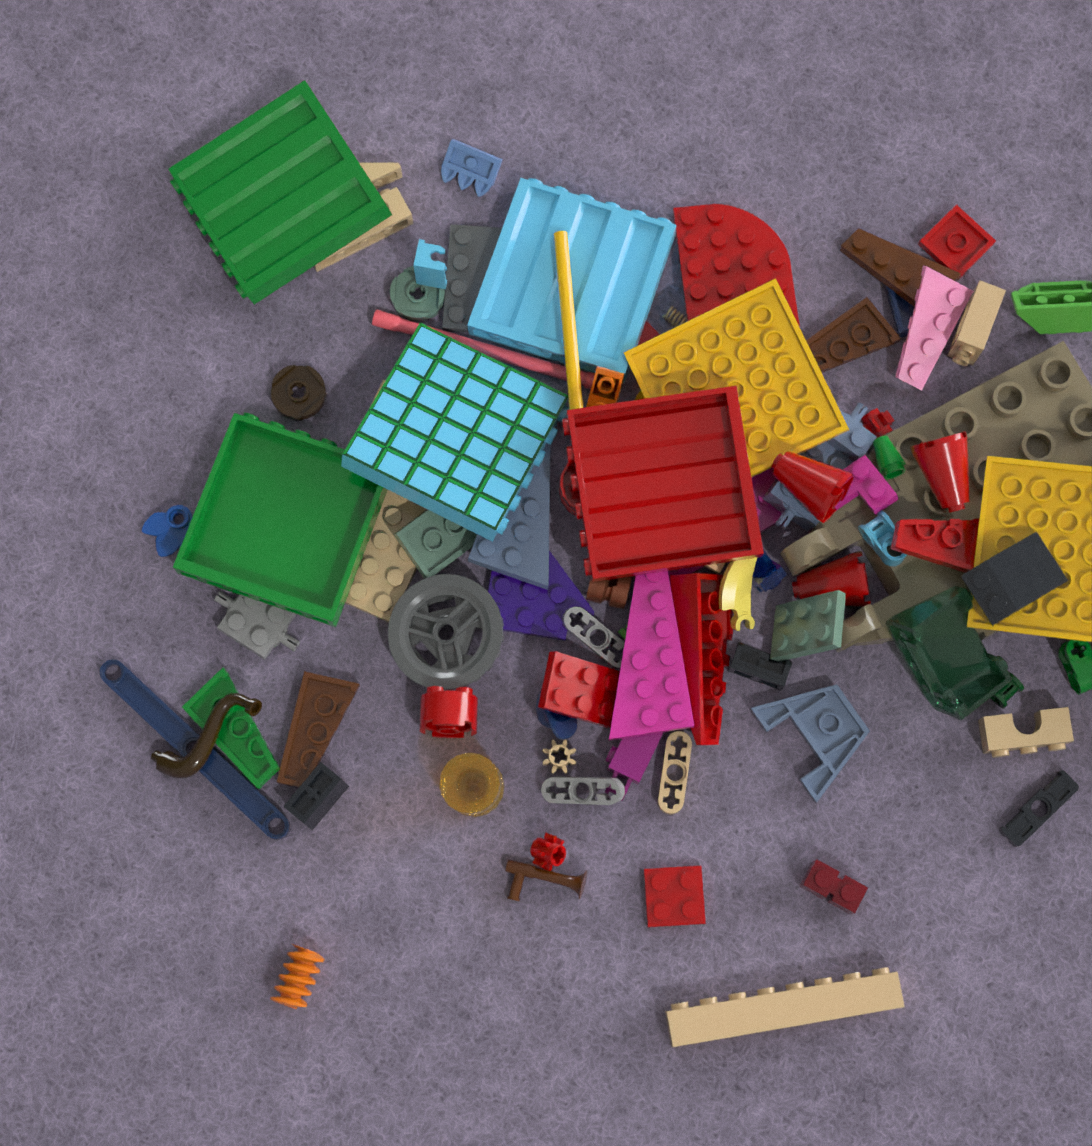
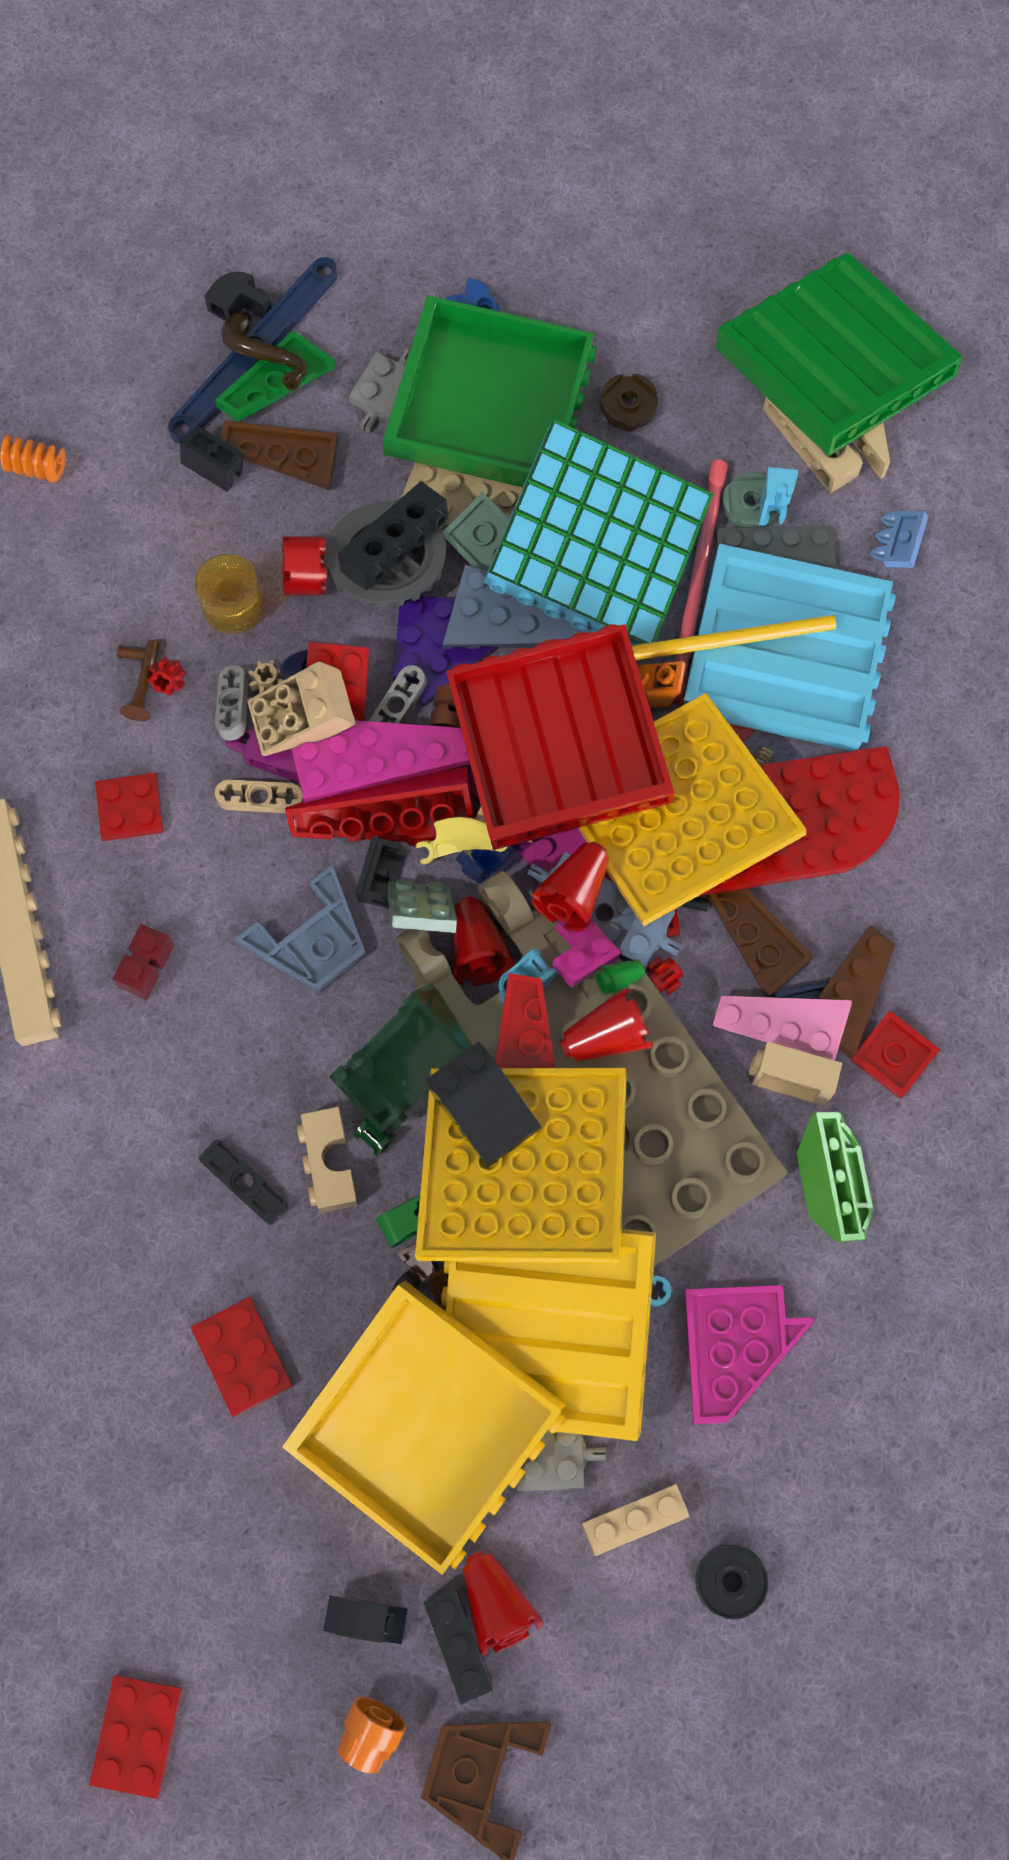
camera: 85 degrees right, 5 degrees down
(130, 763) = (235, 292): none -> black brick
(402, 591) = (393, 535): none -> black brick
(612, 720) = (301, 709): none -> tan slope

